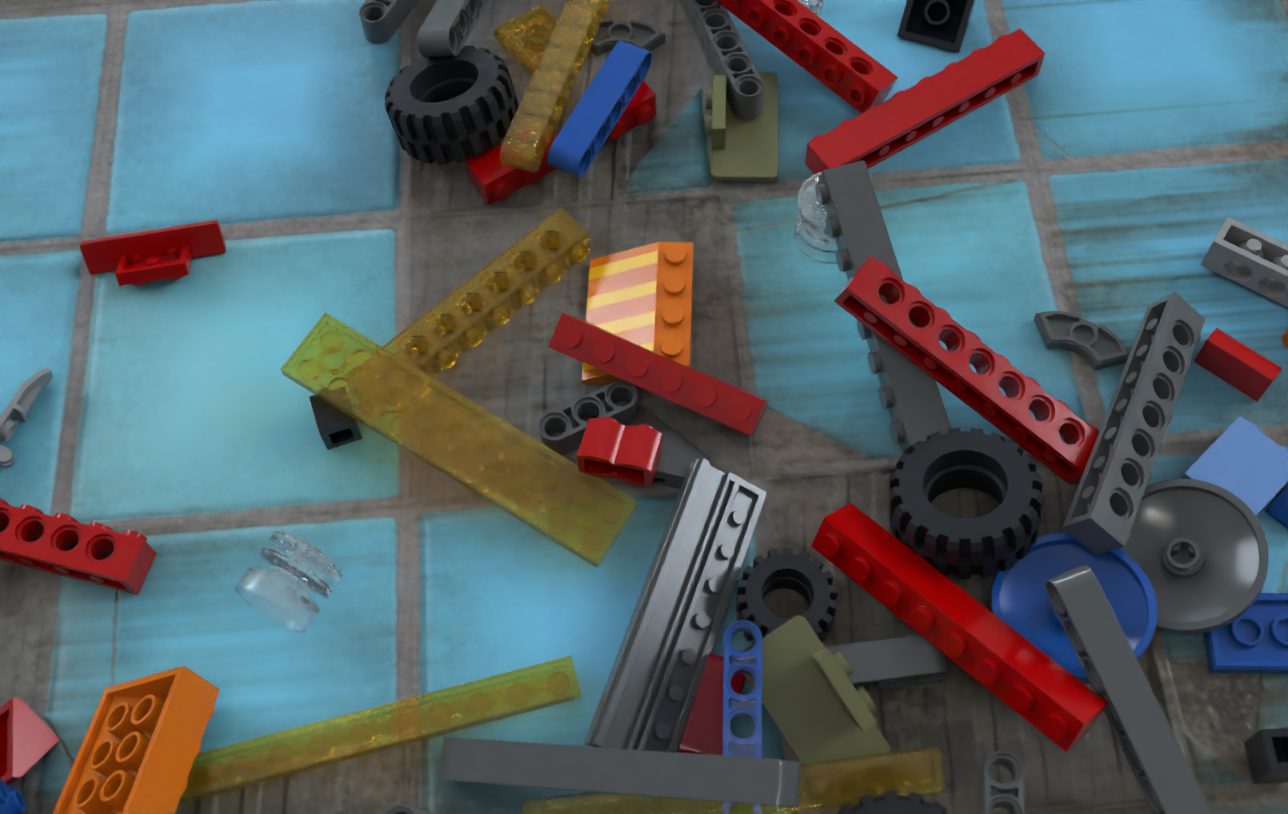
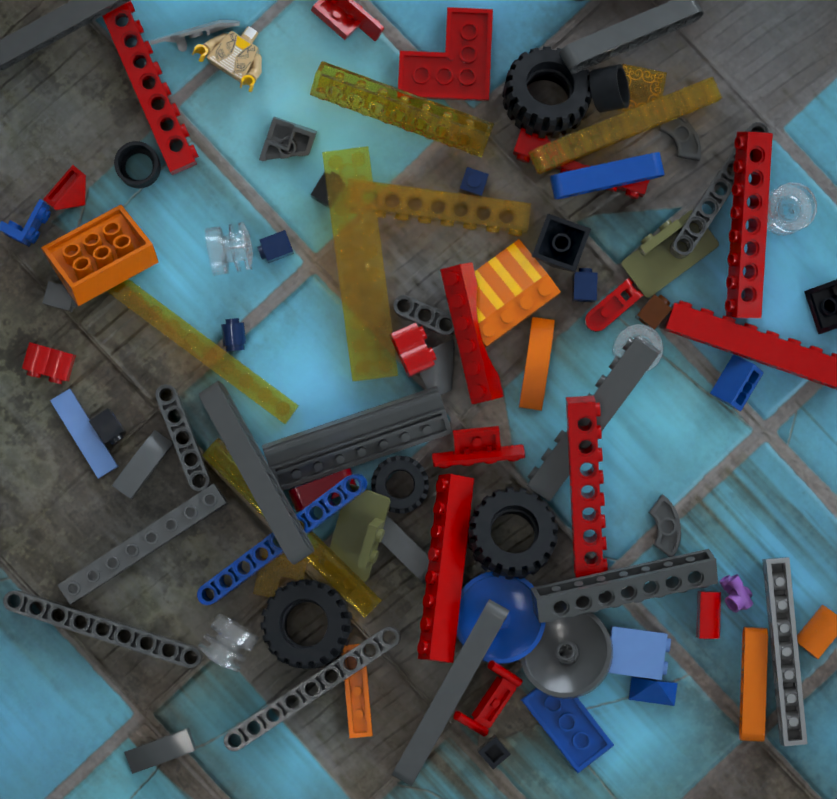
camera: 50 degrees right, 25 degrees up
(64, 599) = (125, 153): none -> black piece
(76, 405) = (234, 55): none -> tan torso
(234, 422) = (287, 140): none -> dark grey slope
(304, 265) = (401, 109): none -> clear yellow brick
(341, 190) = (459, 71): none -> red plate
(344, 529) = (275, 247): none -> dark blue brick
(404, 670) = (233, 335): none -> dark blue brick
(478, 249) = (473, 182): none -> dark blue brick
(509, 39) = (609, 88): none -> black piece
(637, 209) = (561, 243): none -> black slope
(708, 225) = (585, 285): none -> dark blue brick
(756, 218) = (611, 307): none -> red plate
(762, 338) = (537, 363): none -> orange slope
(793, 172) = (654, 311): none -> reddish brown brick
(808, 475) = (477, 446): none -> red bracket
(953, 153) = (737, 382): none -> blue brick
(1194, 705) = (492, 702): none -> red plate
(1230, 312) = (739, 595): none -> medium lavender plate

